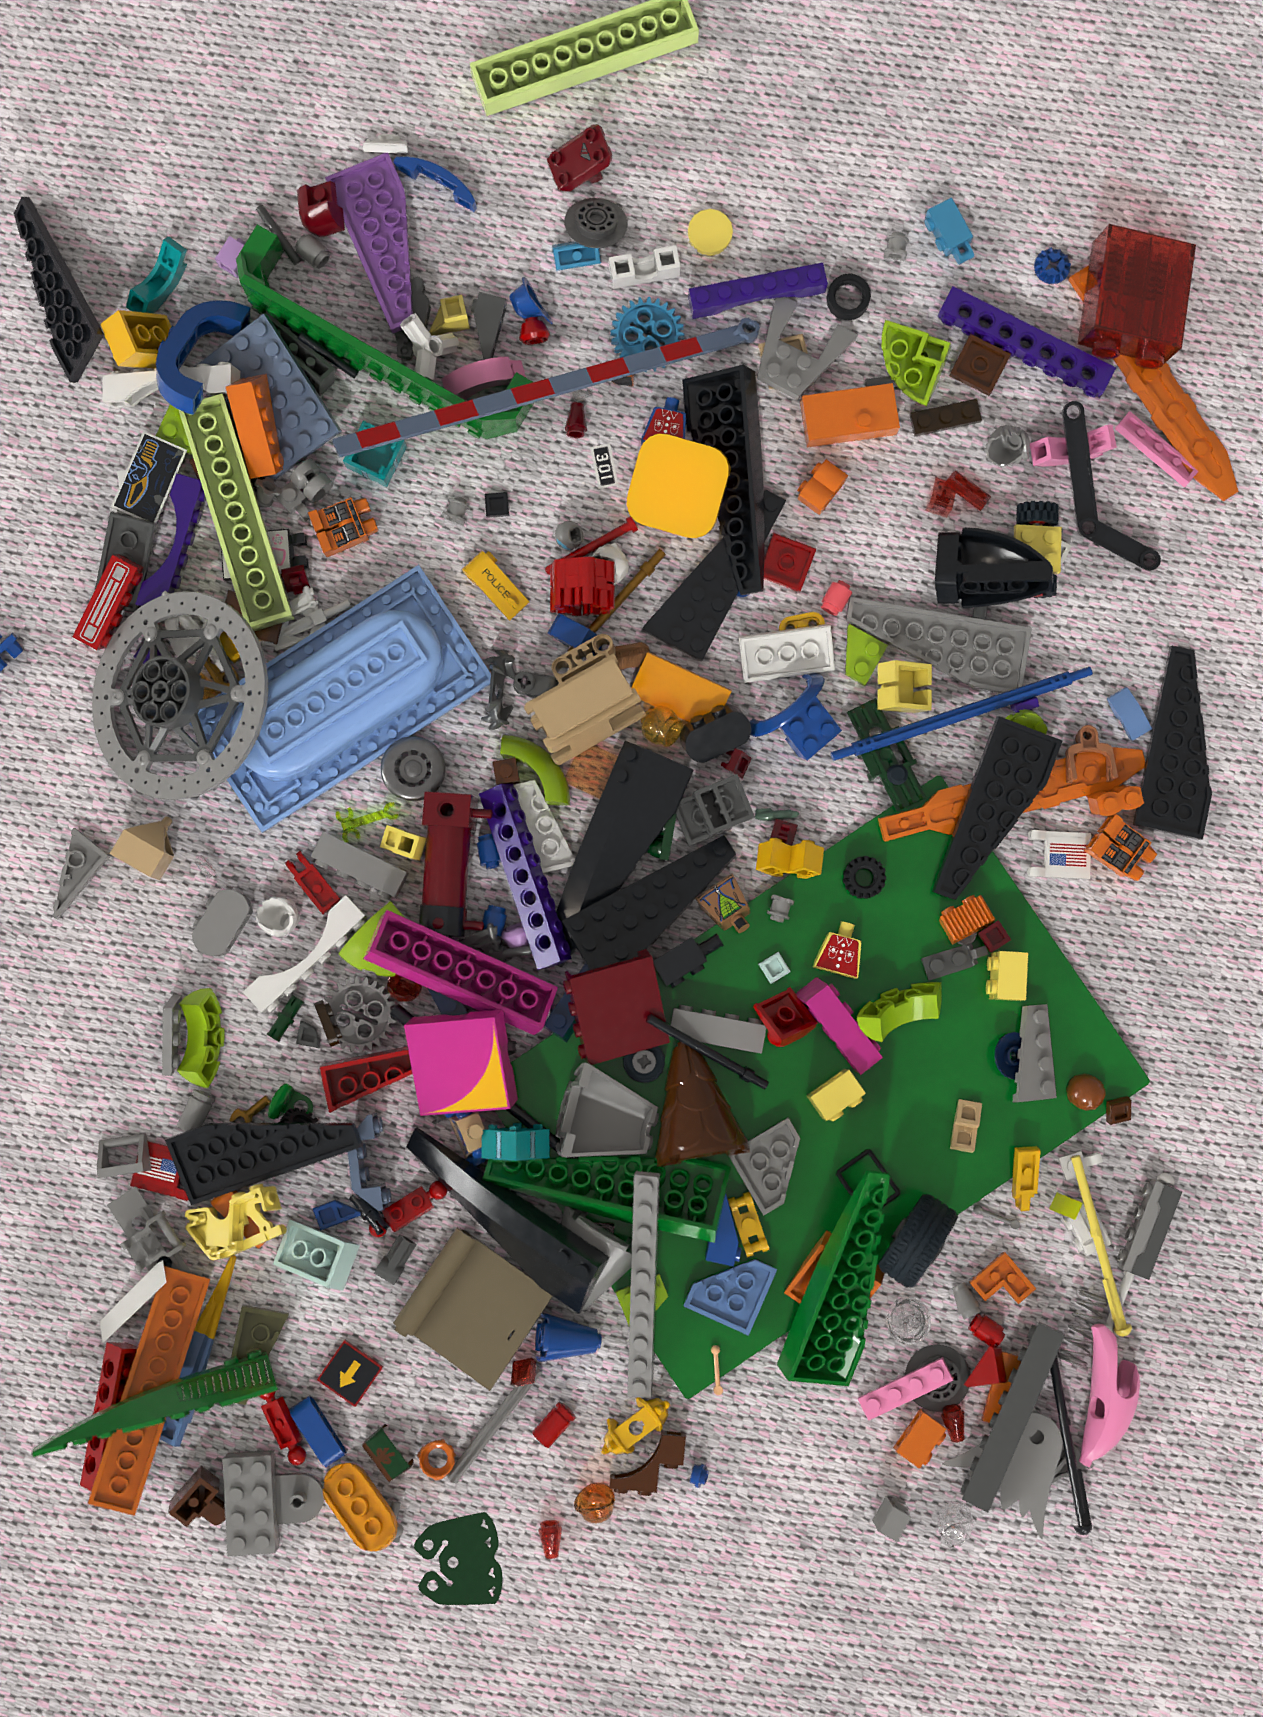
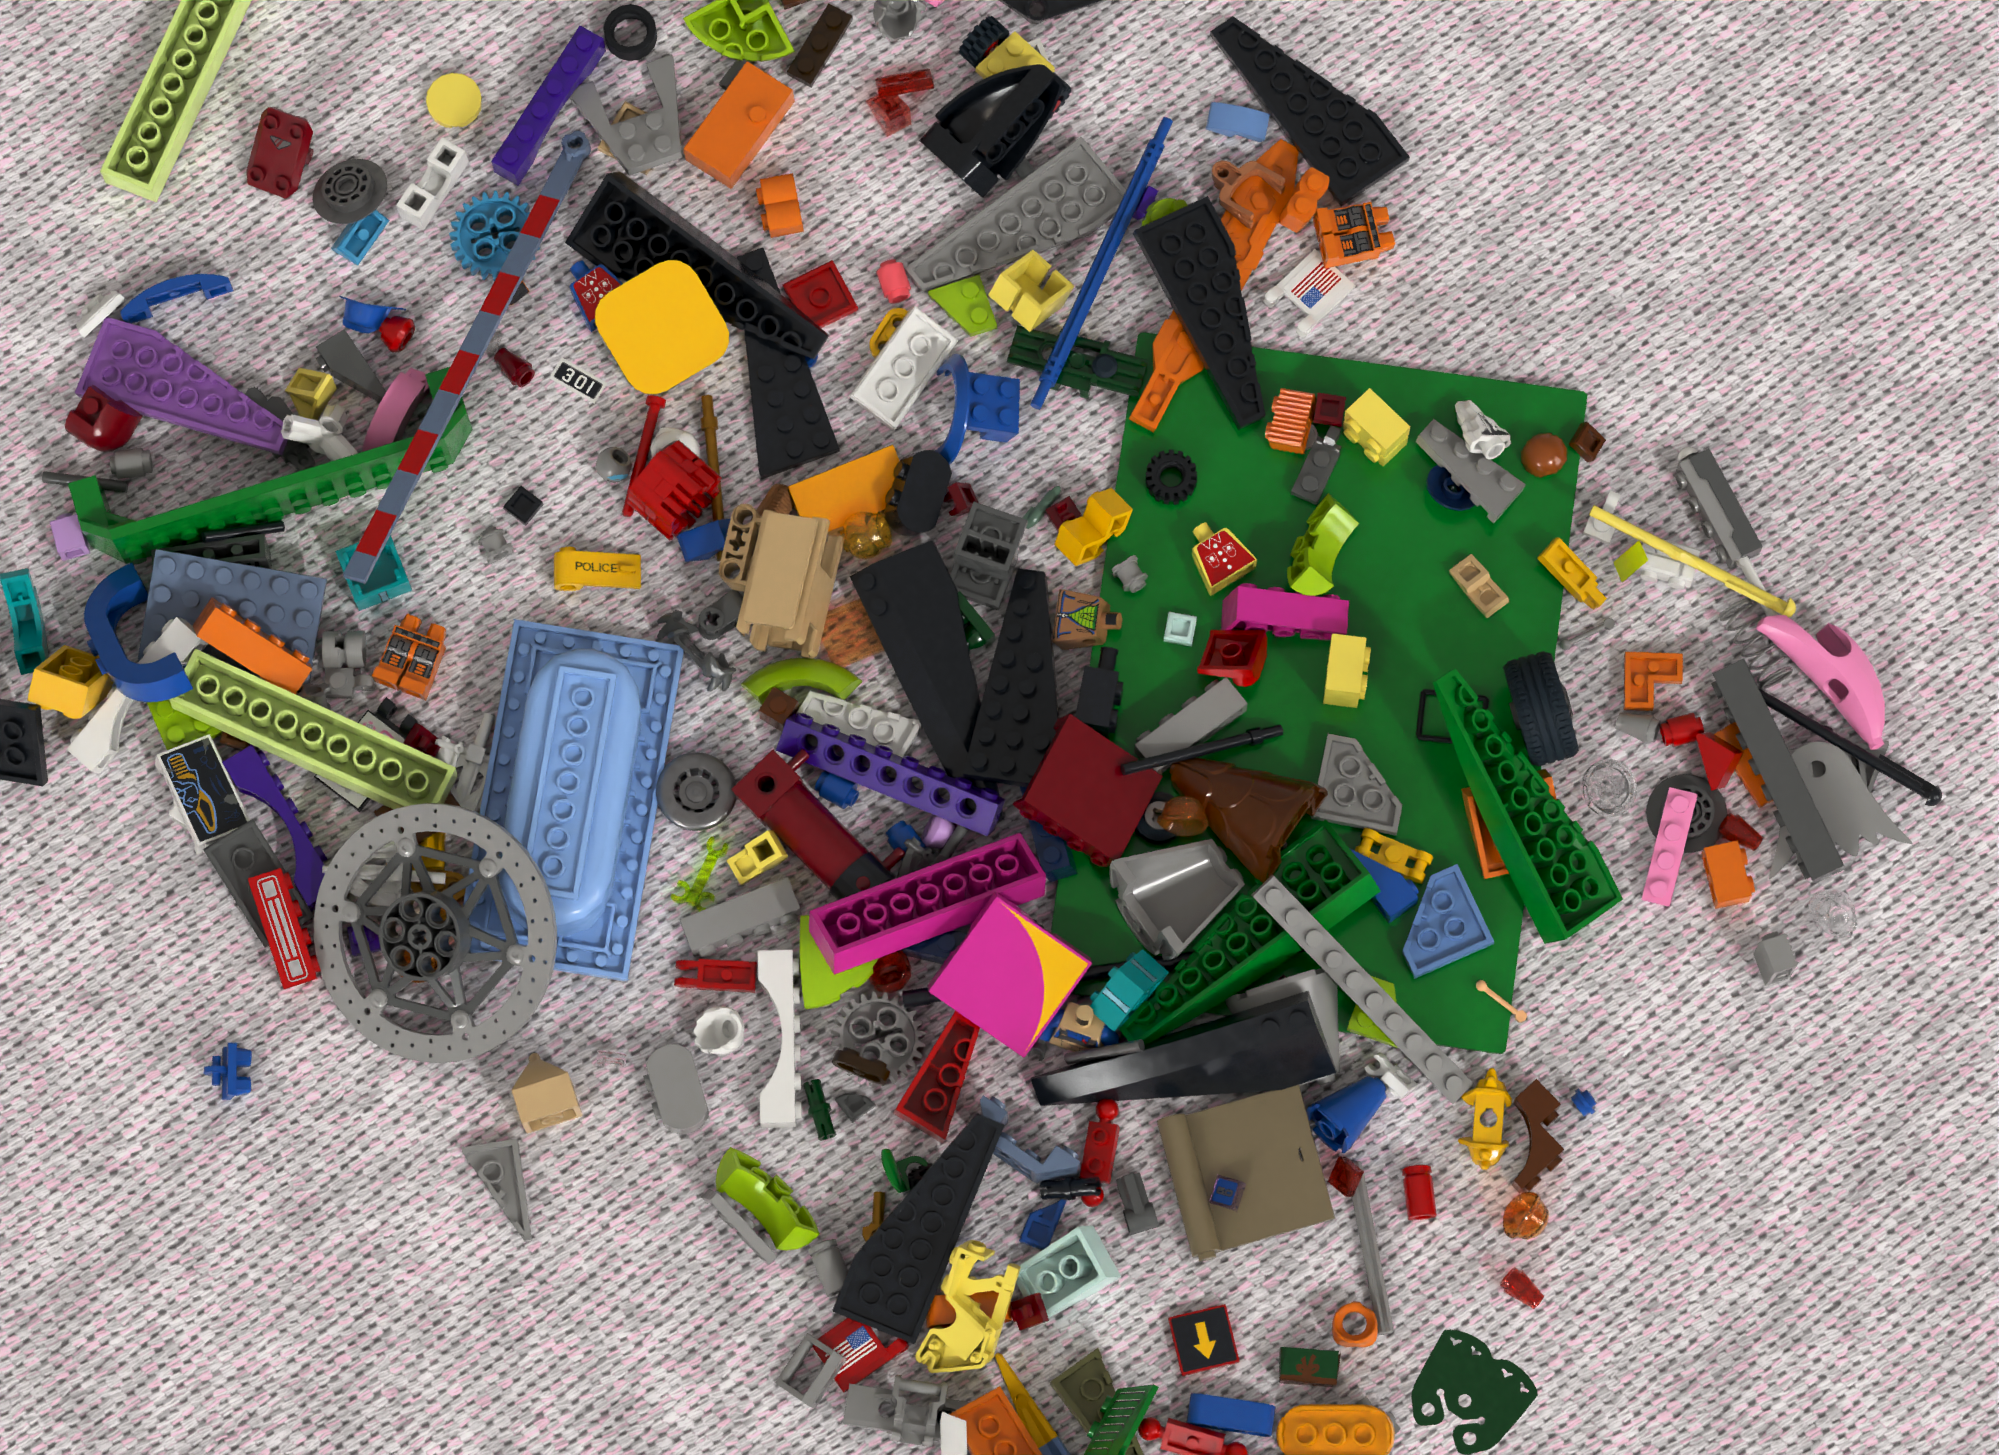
camera: 40 degrees left, 10 degrees down
(273, 1254) = (1029, 1311): none -> dark red tile
(449, 1309) = (1227, 1193): none -> slope
(466, 1161) = (1104, 1051): none -> flat silver bar
(612, 1346) = (1395, 1078): none -> white plate
(655, 1079) = (1183, 816): none -> clear orange helmet
(1064, 1040) = (1480, 431): none -> white rock

